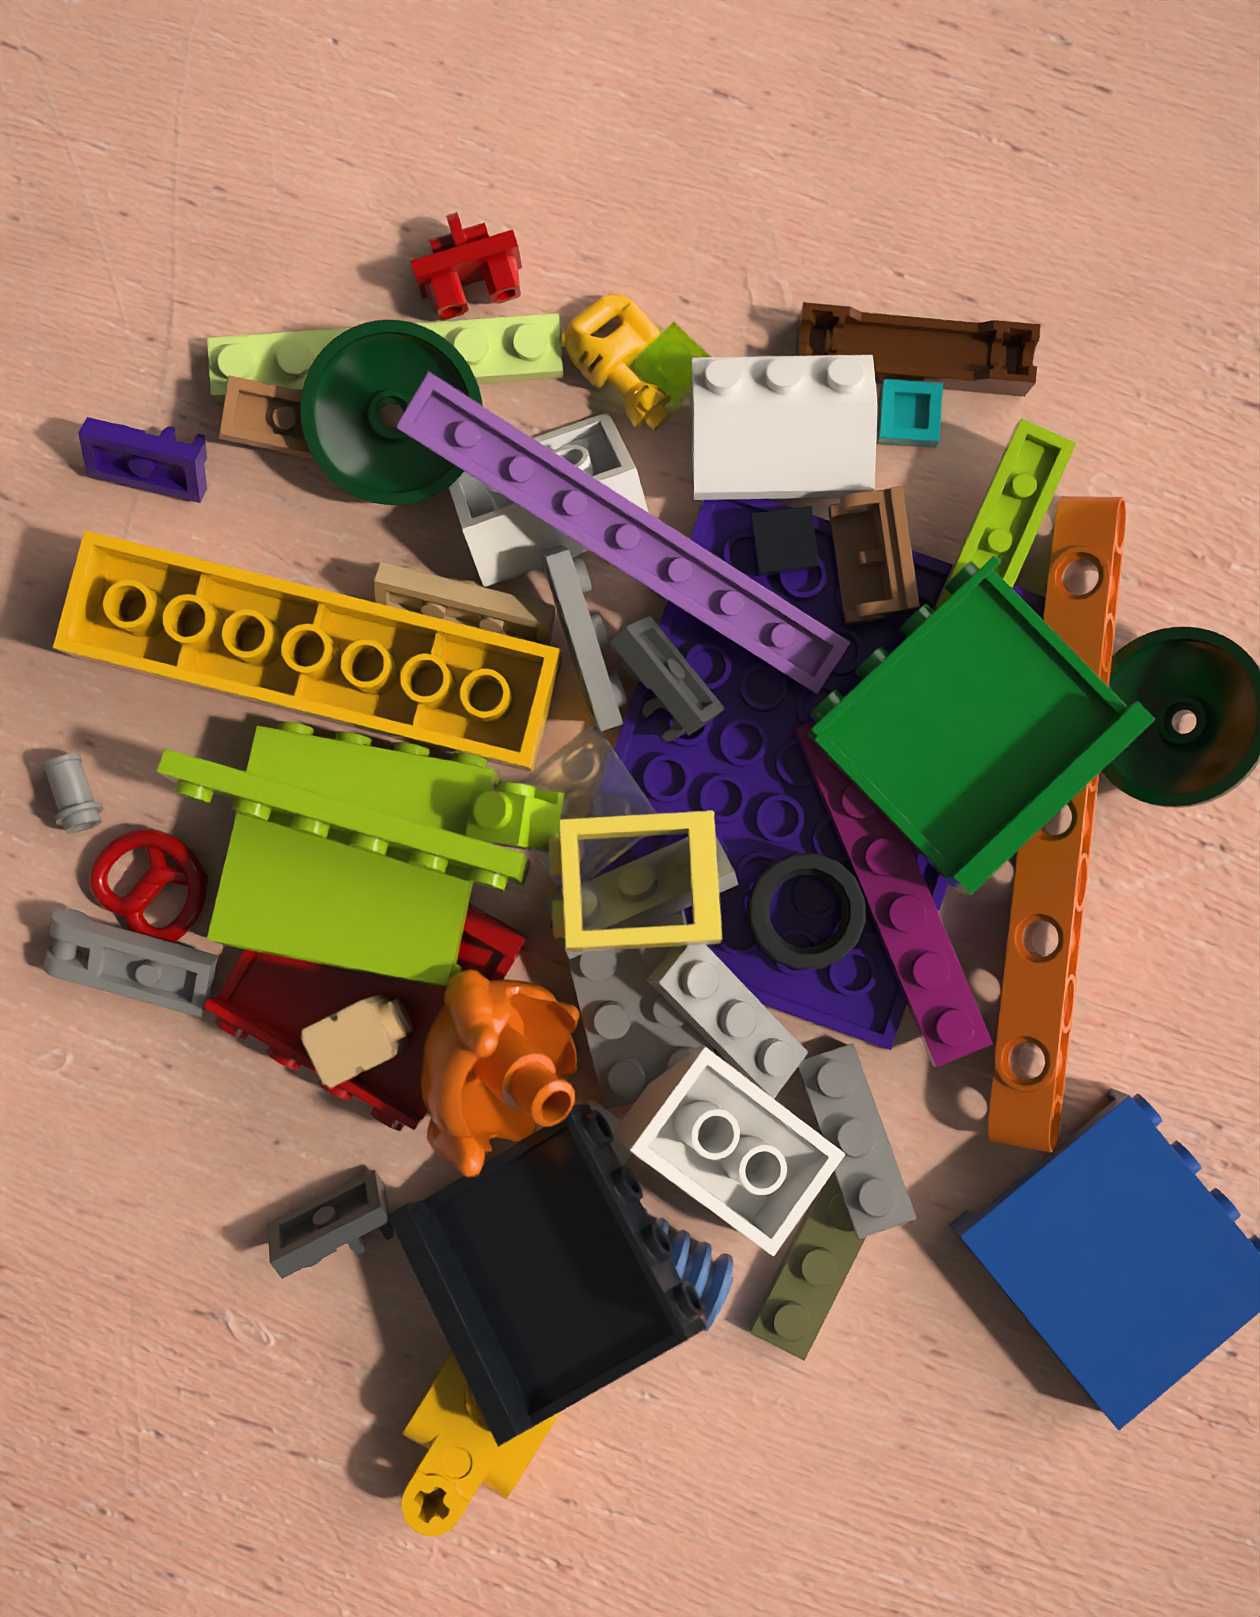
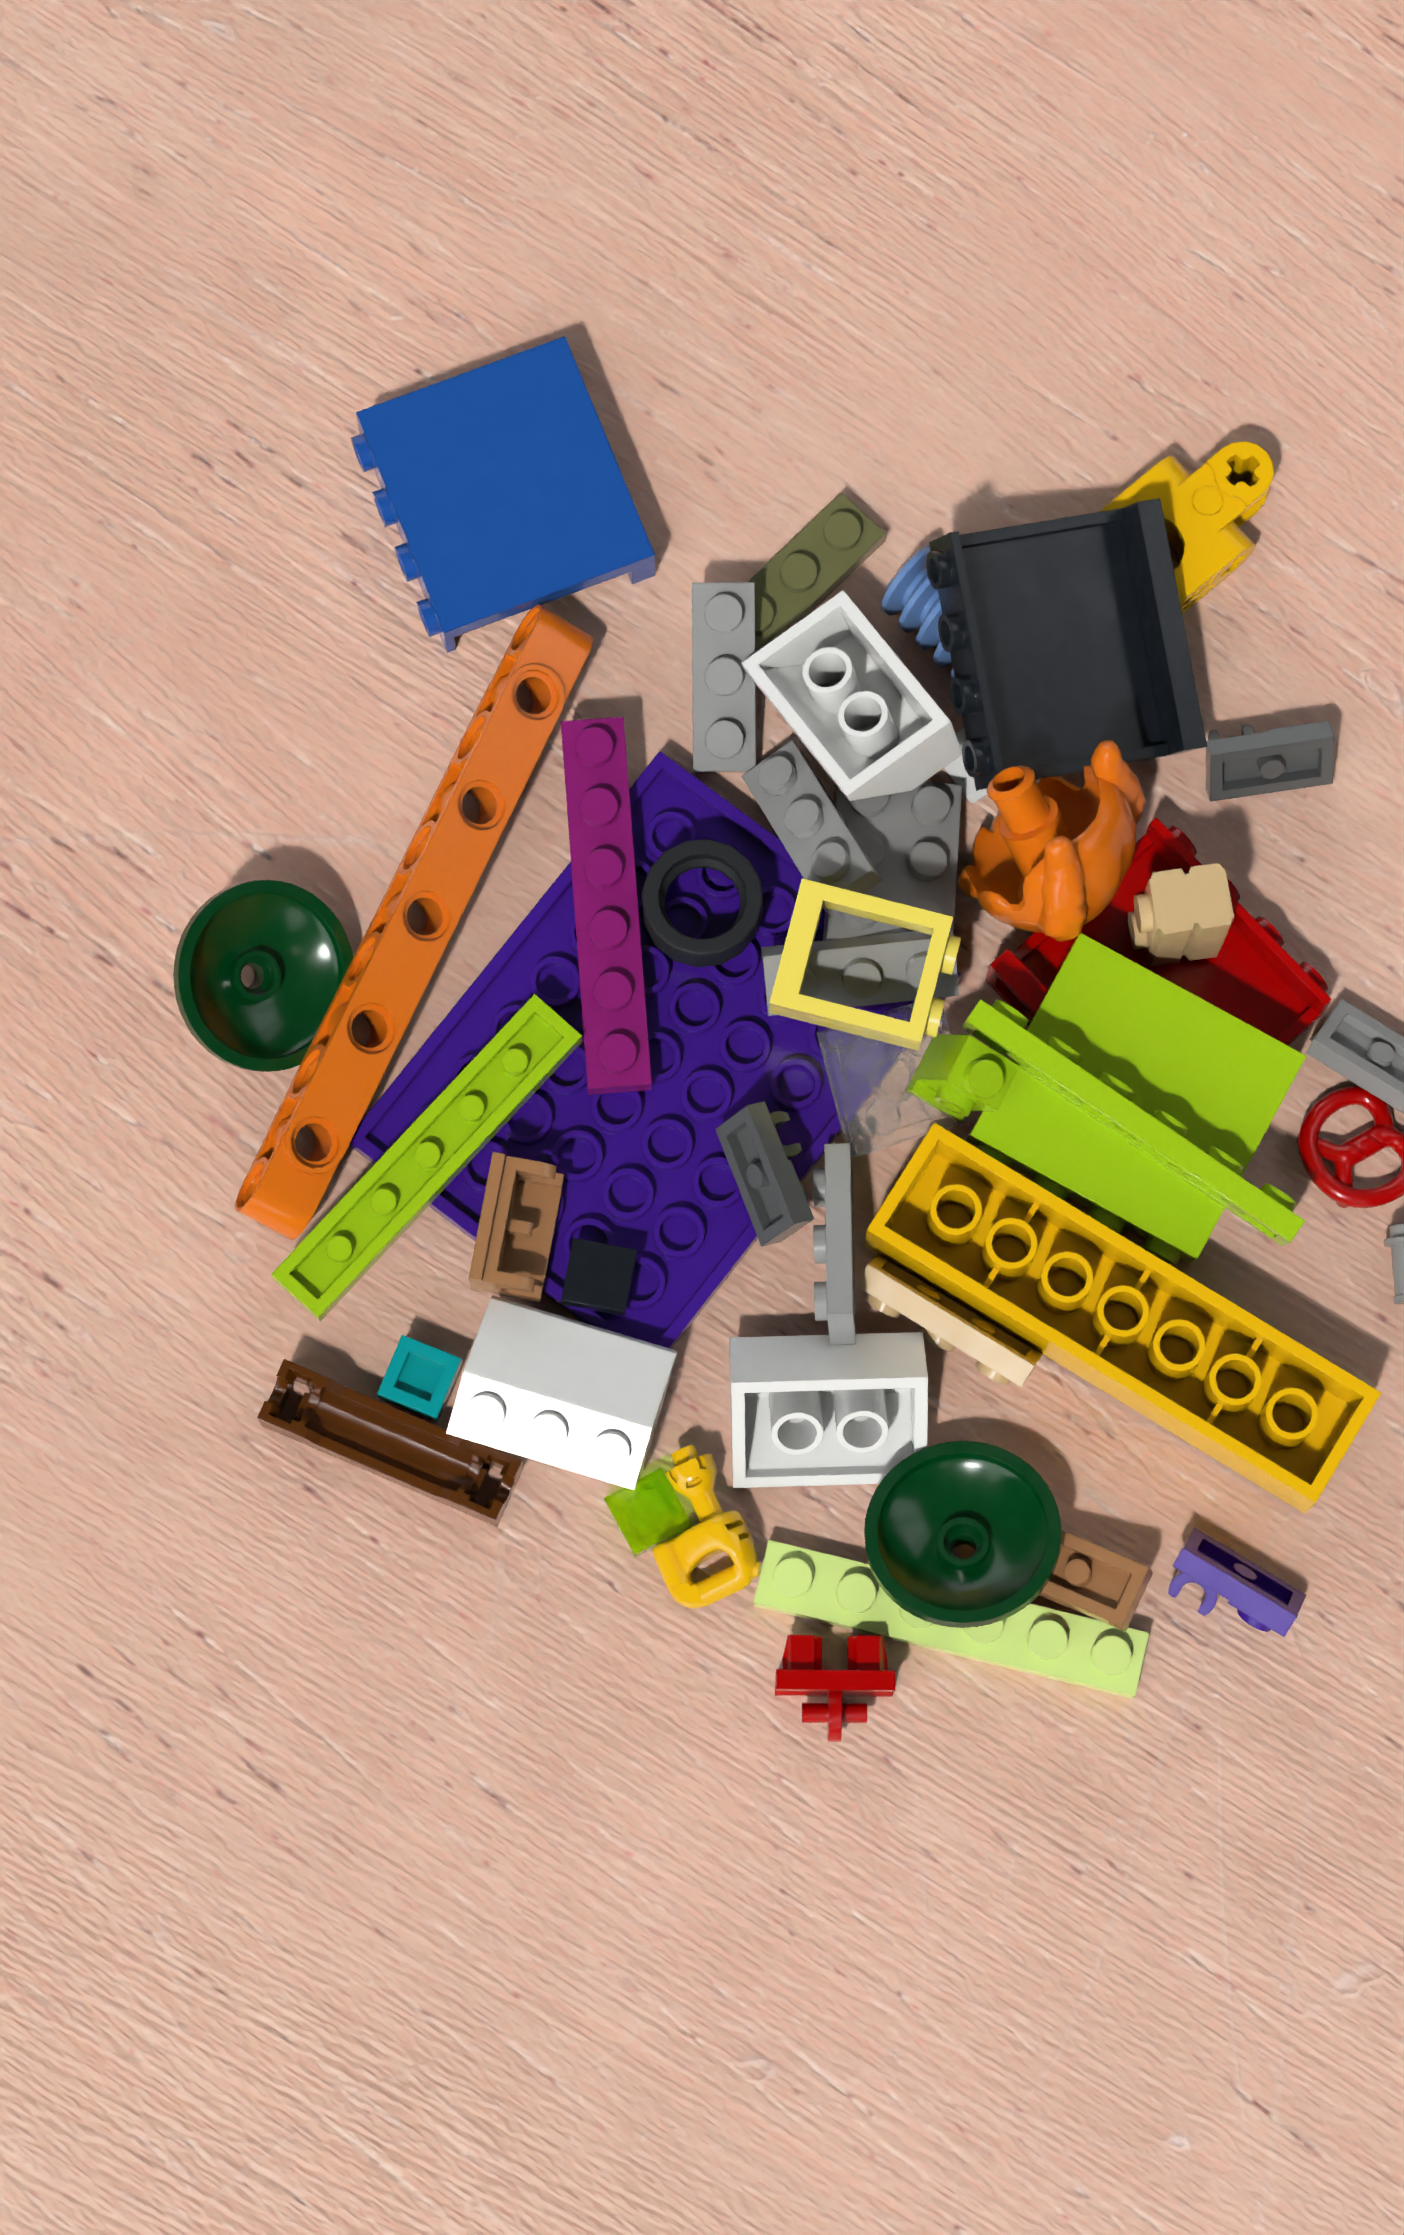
camera: 165 degrees left, 10 degrees down
(621, 532) = (767, 1315): medium lavender plate -> none
(974, 728) = (478, 1016): green panel -> none

